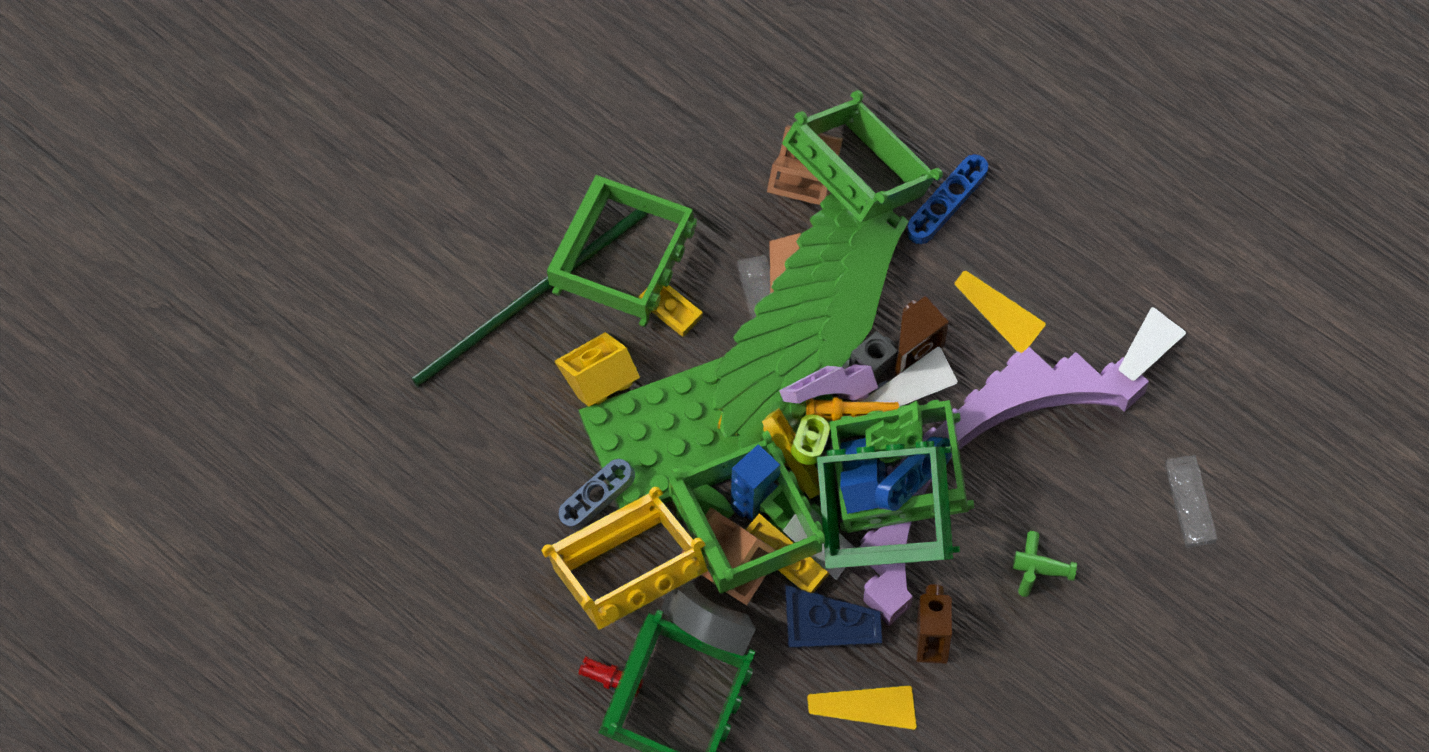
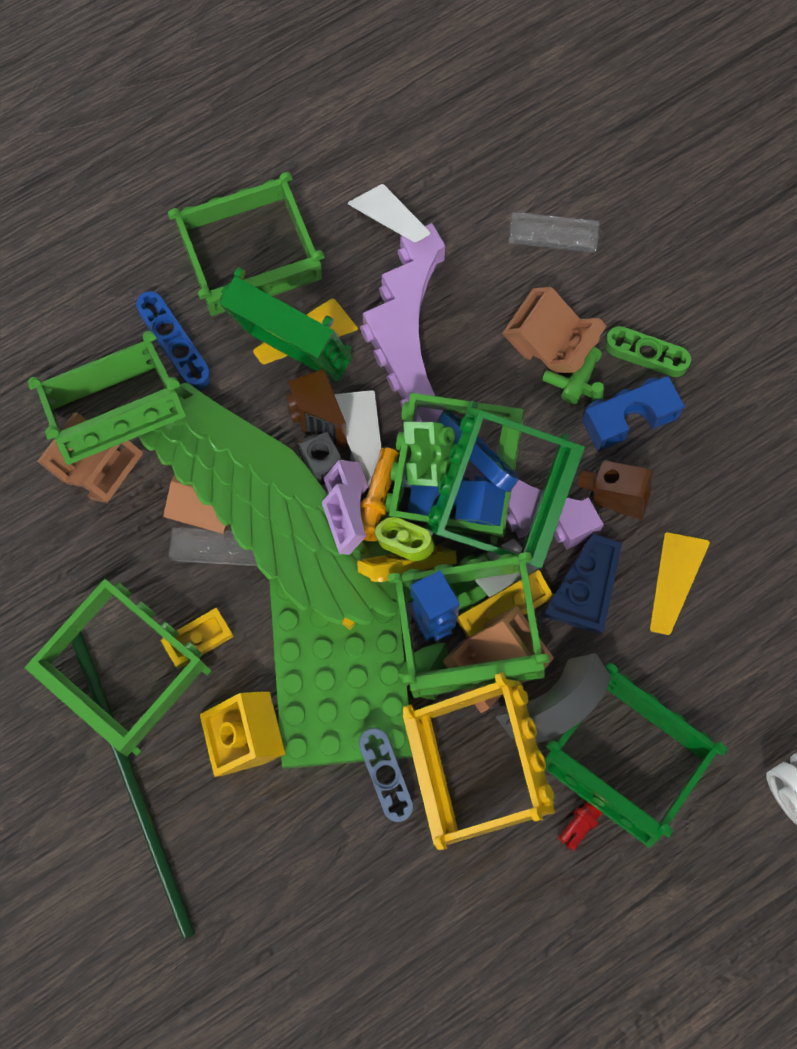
camera: 75 degrees left, 5 degrees up
(974, 311) = (286, 328): none -> green window
(1004, 600) = (654, 400): none -> blue arch
(1033, 258) = (246, 199): none -> bright green window
(1077, 524) = (552, 331): none -> nougat piece
(1103, 602) = (645, 340): none -> bright green beam

